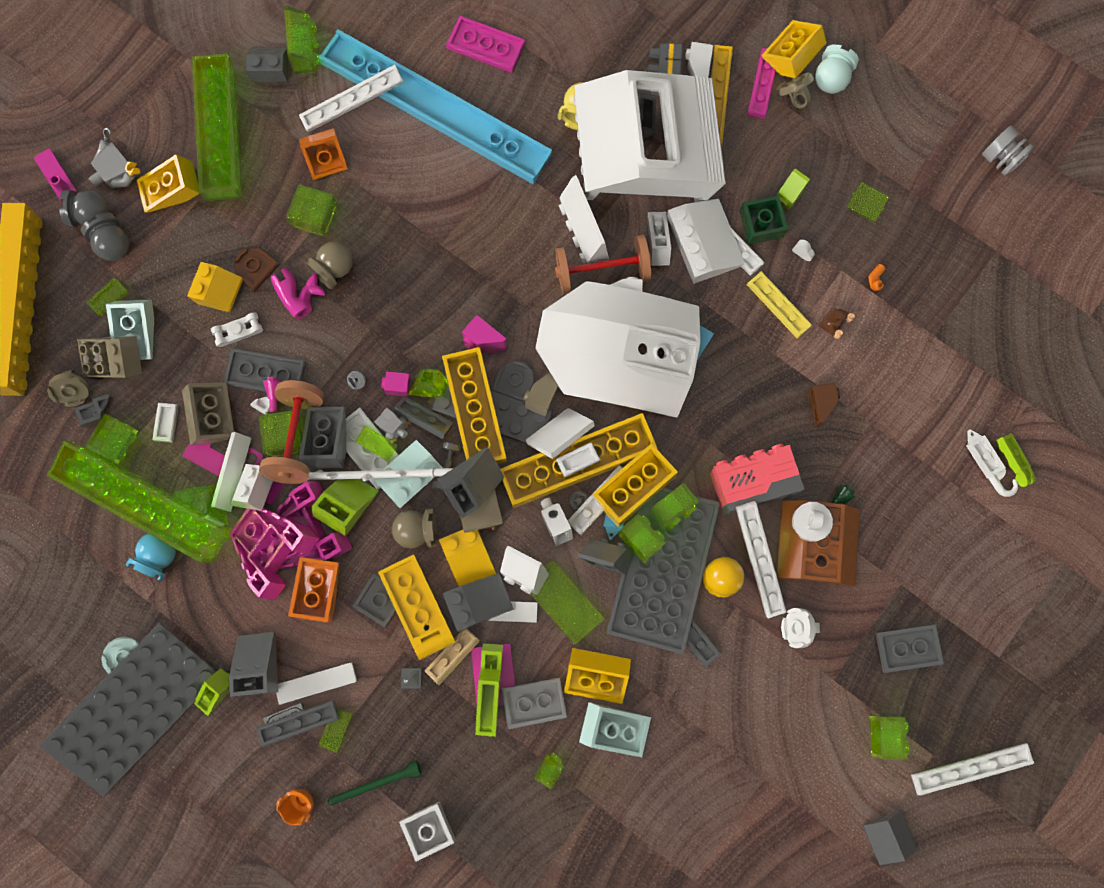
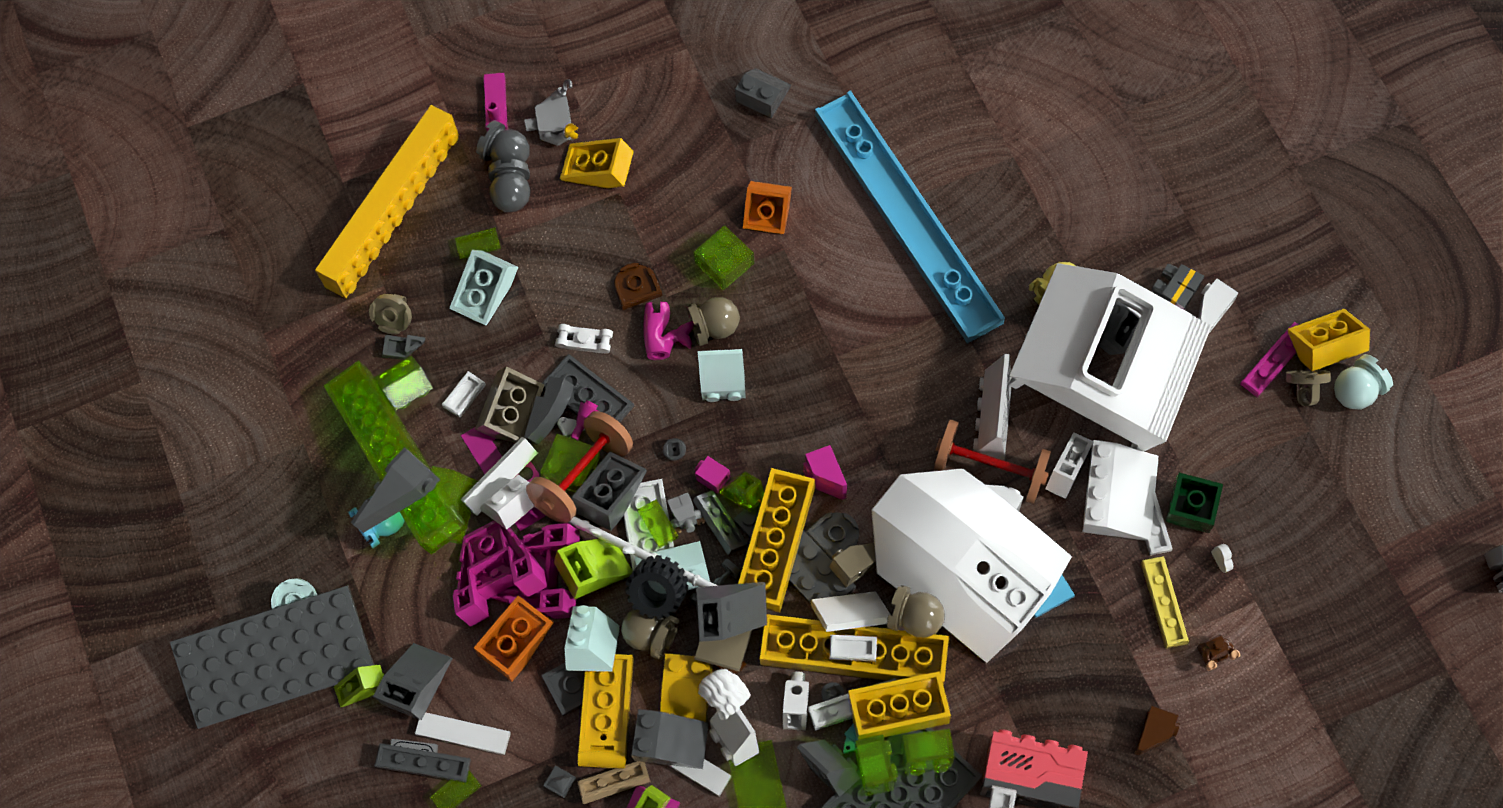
camera: 35 degrees right, 10 degrees down
(109, 356) = (447, 302): dark tan slope -> none
(159, 521) = (403, 485): none -> dark grey wedge
(215, 287) = (586, 286): yellow slope -> none
(216, 127) = (675, 130): clear neon green brick -> none
(240, 399) = (548, 409): none -> dark grey slope
(301, 40) = (806, 85): clear neon green slope -> none
(351, 98) = (826, 166): white tile -> none
(362, 303) = (721, 375): none -> light aqua slope
(376, 561) = (591, 640): none -> light aqua slope
(406, 507) = (647, 599): none -> black tyre
(485, 44) = (996, 177): dark pink tile -> none
(501, 545) = (724, 692): none -> white hair
(614, 408) = (917, 613): none -> dark tan tile
(720, 78) = (1220, 345): yellow tile -> none
(792, 189) = (1243, 486): lime slope -> none
(867, 202) = (1325, 543): clear neon green piece -> none
(874, 278) = (1287, 628): orange arm -> none

